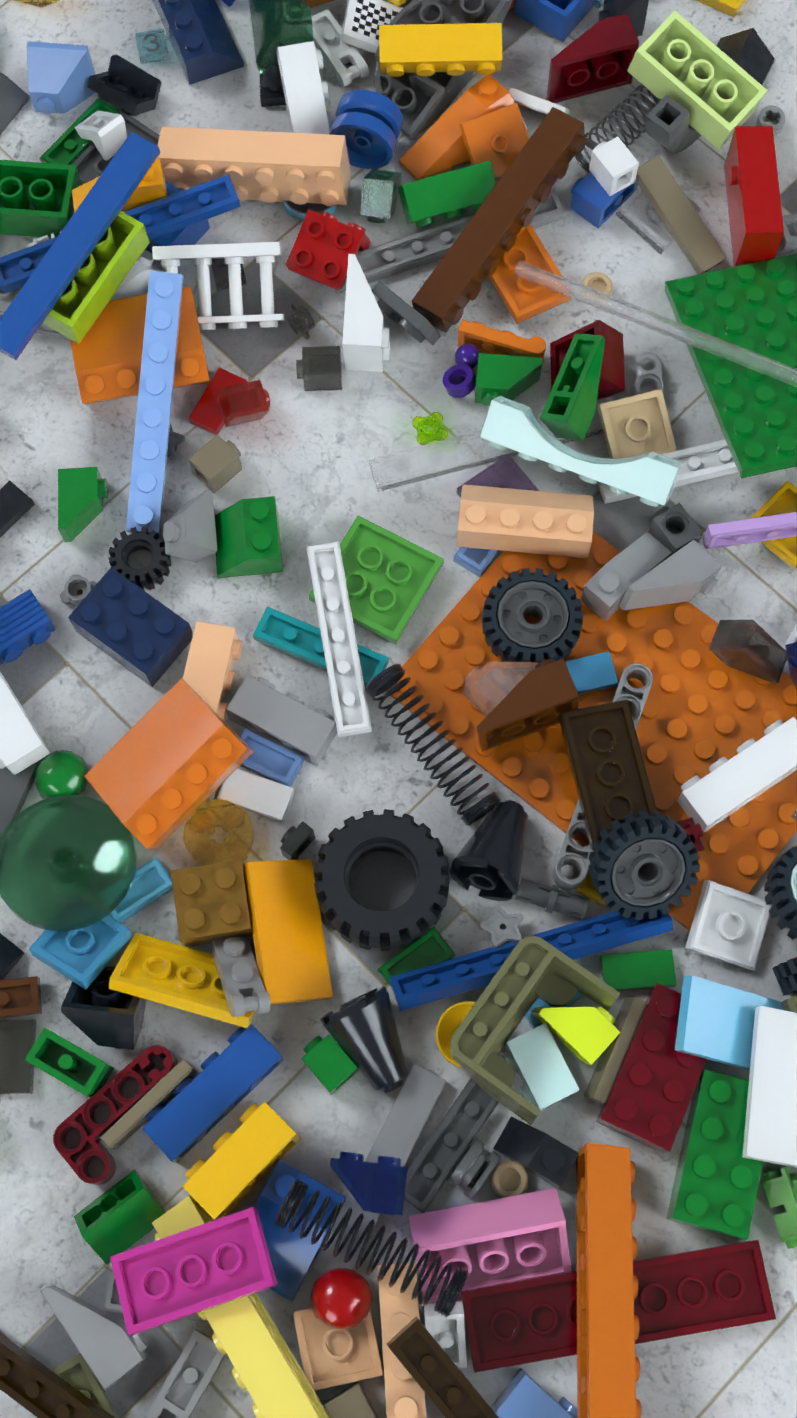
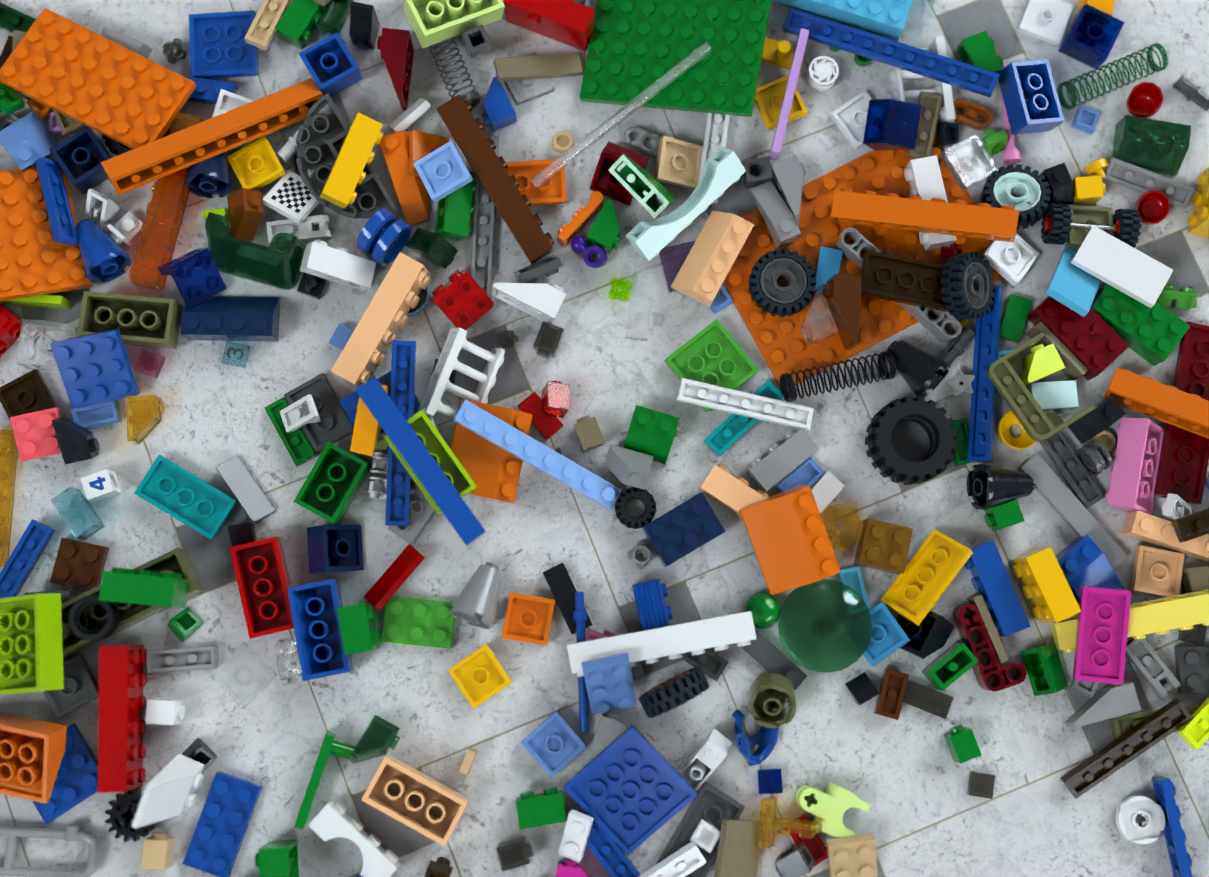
camera: 75 degrees left, 10 degrees up
(58, 76) = (241, 428): medium blue slope -> none
(79, 499) = (576, 530): green slope -> none
(126, 86) = (266, 384): black bracket -> none
(240, 976) = (939, 546): light grey plate -> none
(287, 930) = (917, 508): light orange tile -> none
(296, 841) = (863, 482): pearl dark grey plate -> none
(341, 1298) = (1138, 560): red hair -> none
(375, 1186) = (1089, 513): clear blue slope -> none
(446, 1298) = (1162, 496): black piece -> none
(476, 149) = (443, 171): none -> light blue plate
(613, 166) = (491, 90): white brick -> none
(718, 765) = (925, 215): none -> orange brick
(749, 649) = (853, 166): clear smoke slope -> none

